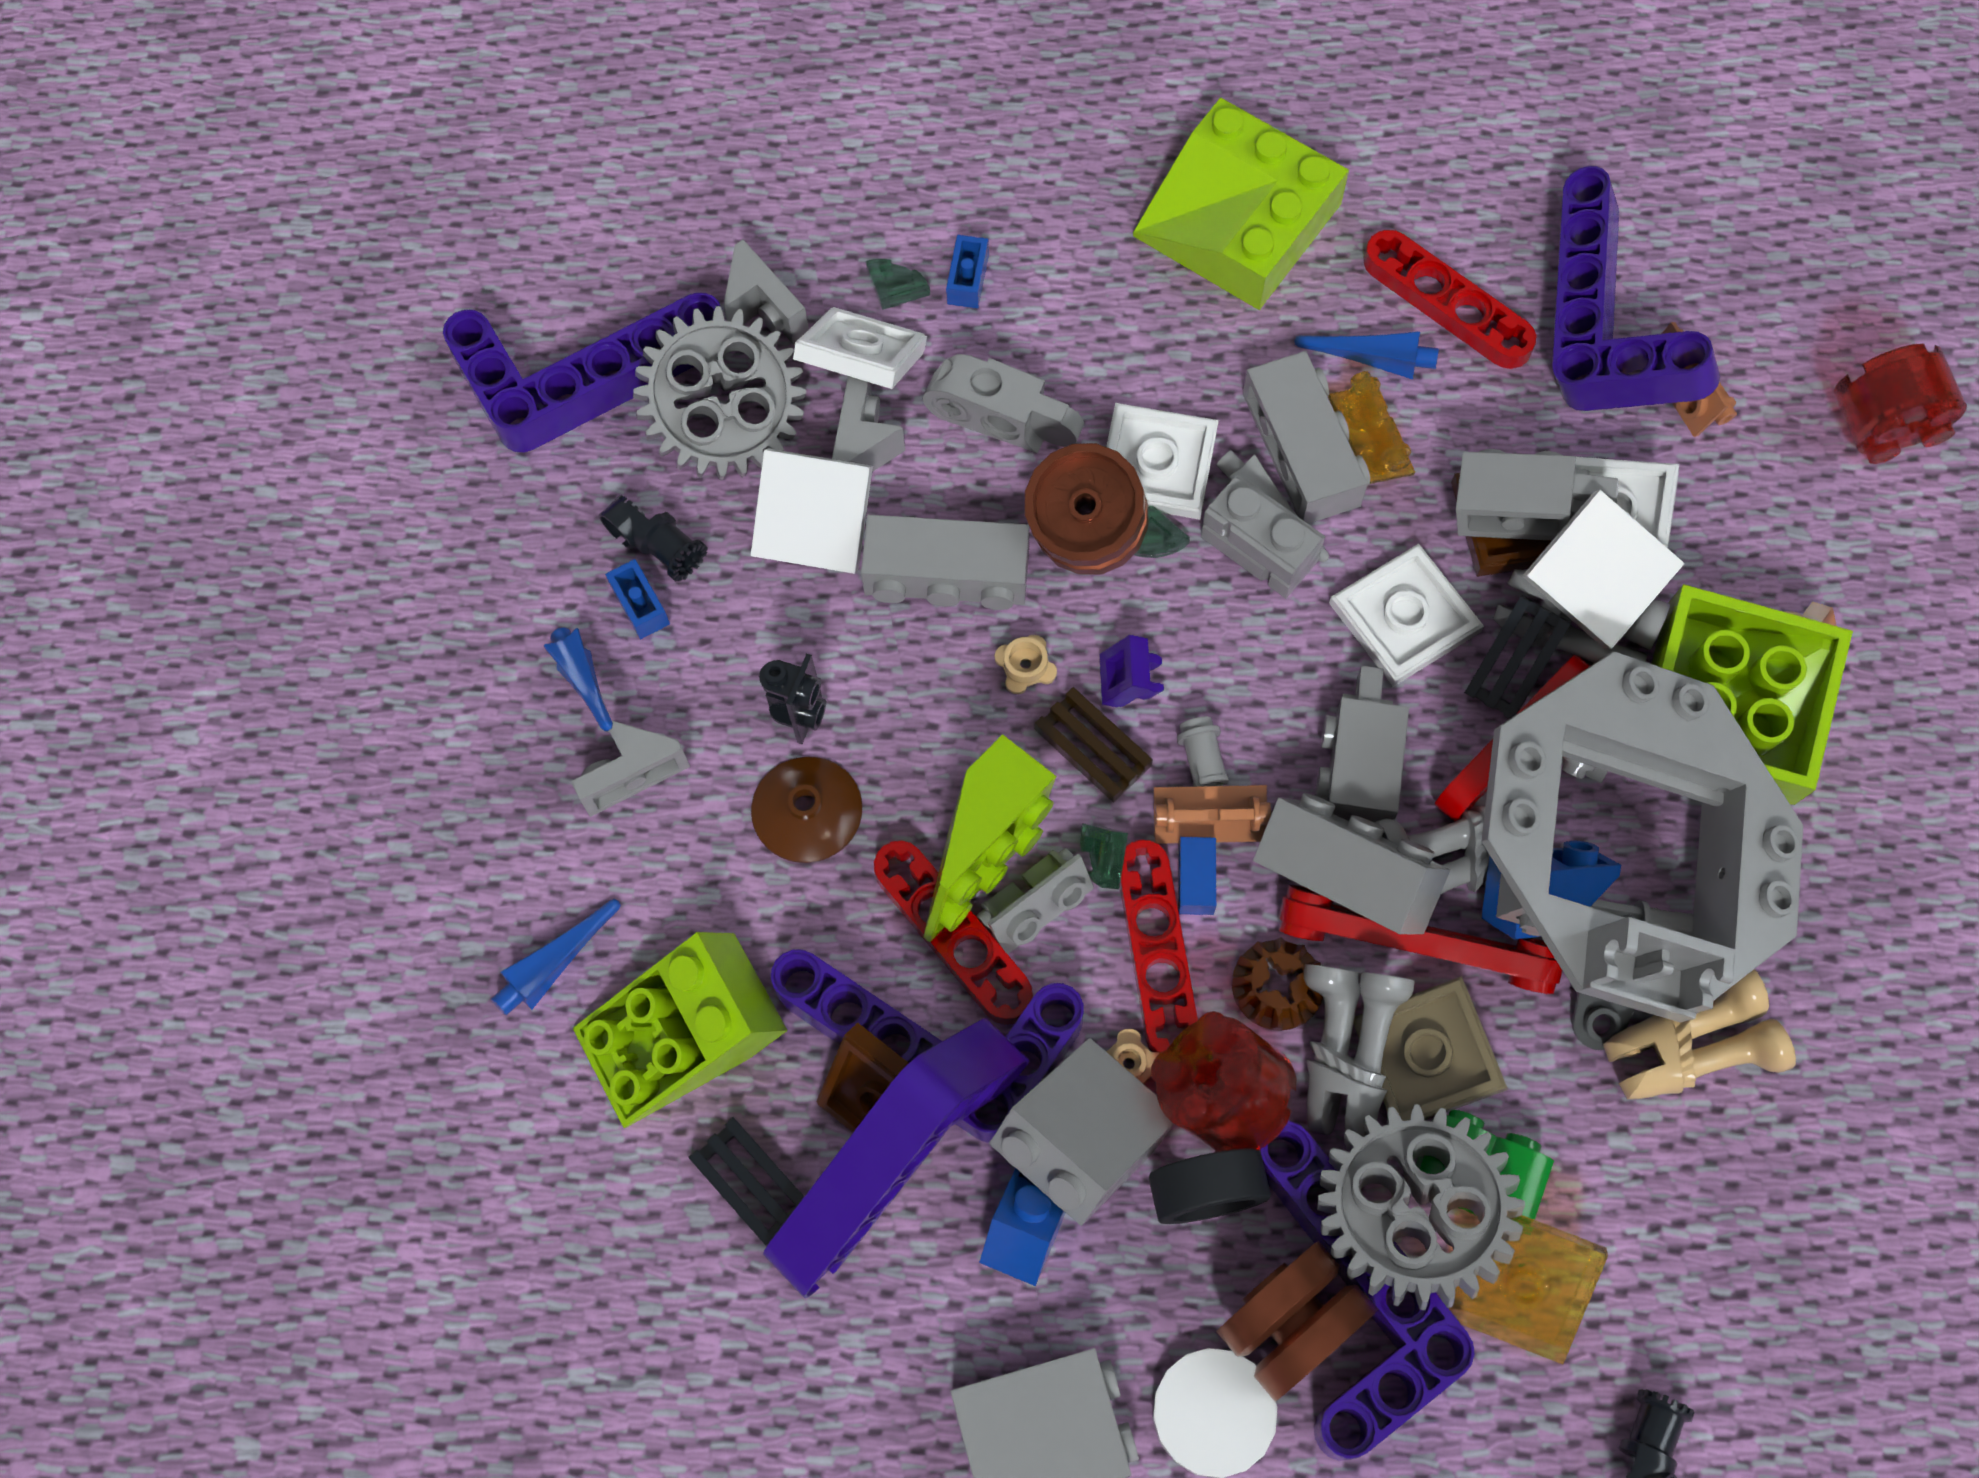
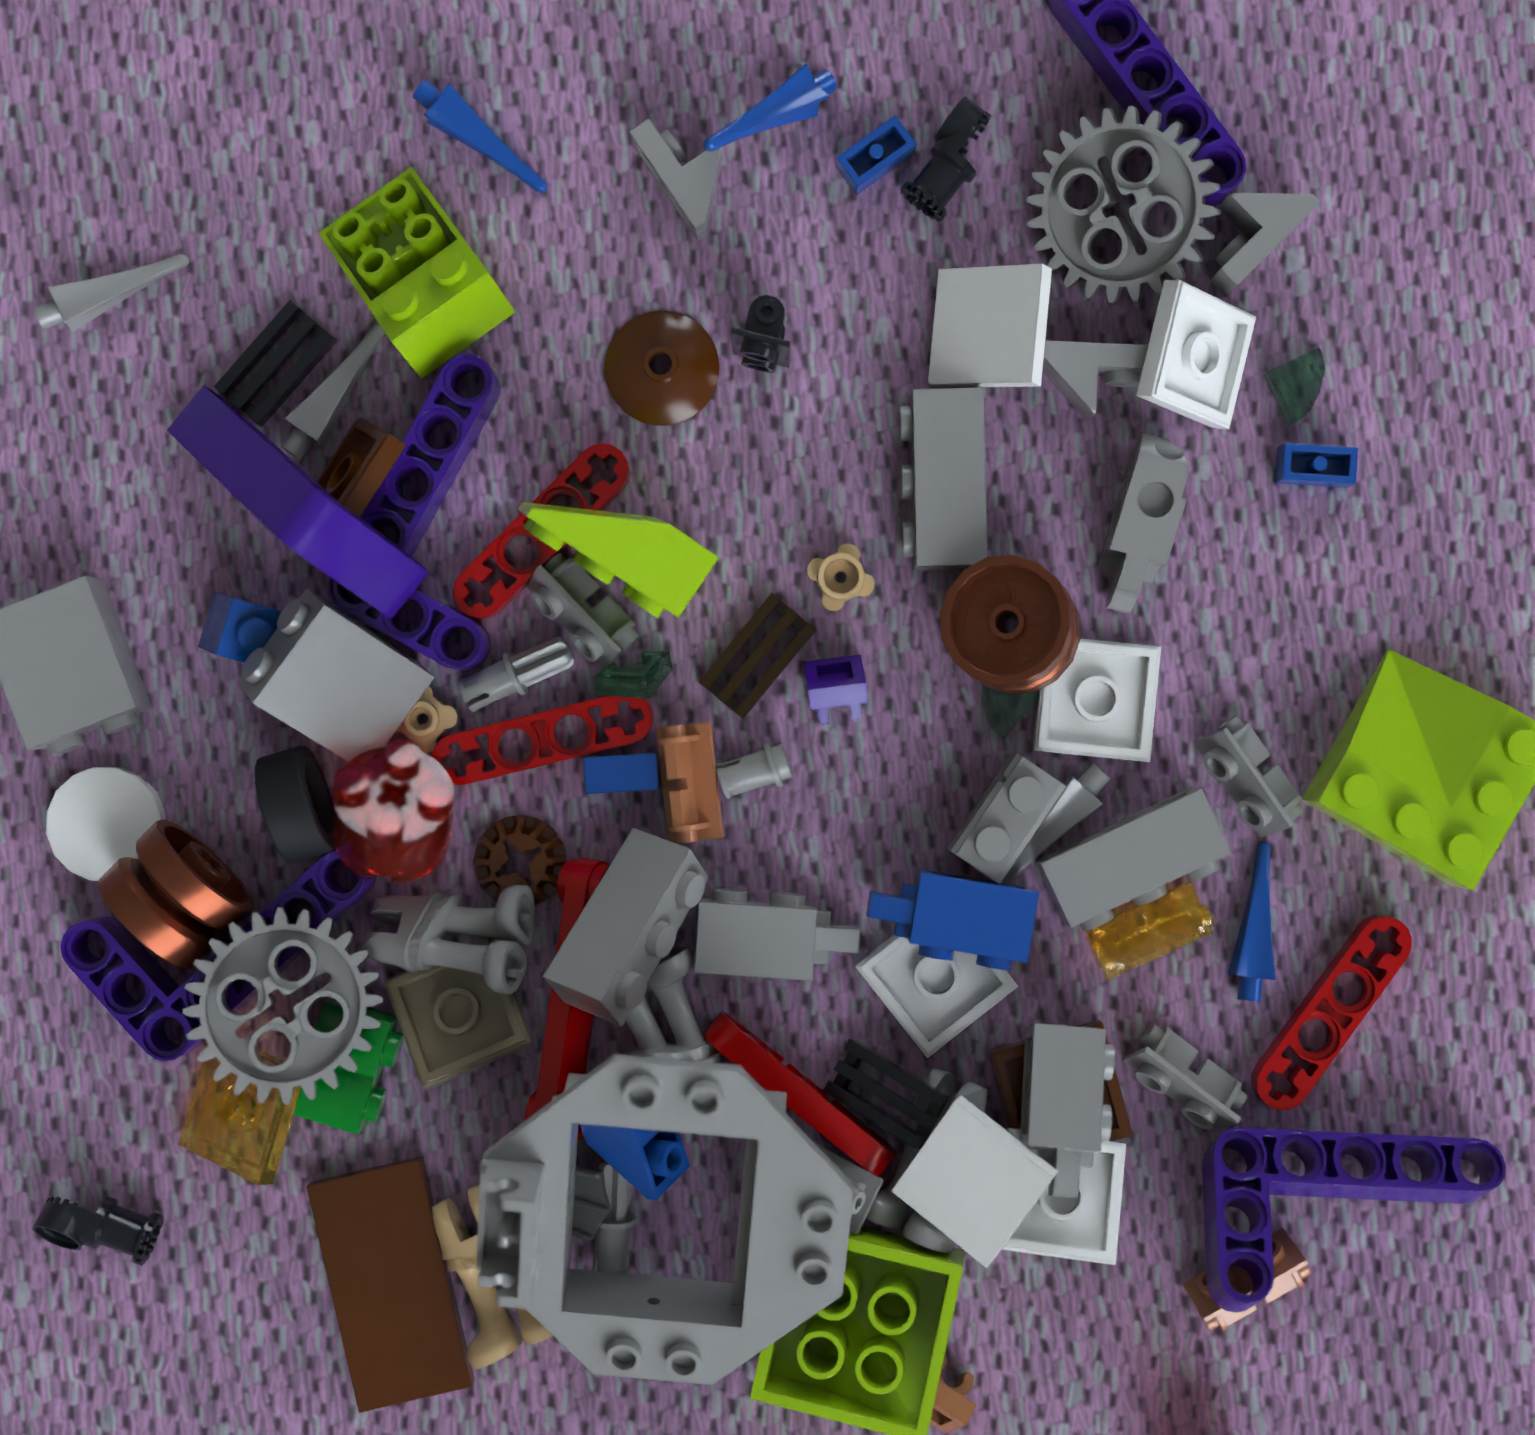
camera: 85 degrees right, 20 degrees up
(654, 1380) = (87, 299): none -> light grey piece
(808, 1140) = (319, 412): none -> light grey piece
(1091, 968) = (515, 673): none -> light grey axle
(1245, 343) = (1263, 800): none -> light grey hinge
(1352, 573) = (961, 915): none -> blue hinge
(1520, 401) = (1206, 1096): none -> light grey hinge
(1708, 1153) = (390, 1284): none -> reddish brown tile

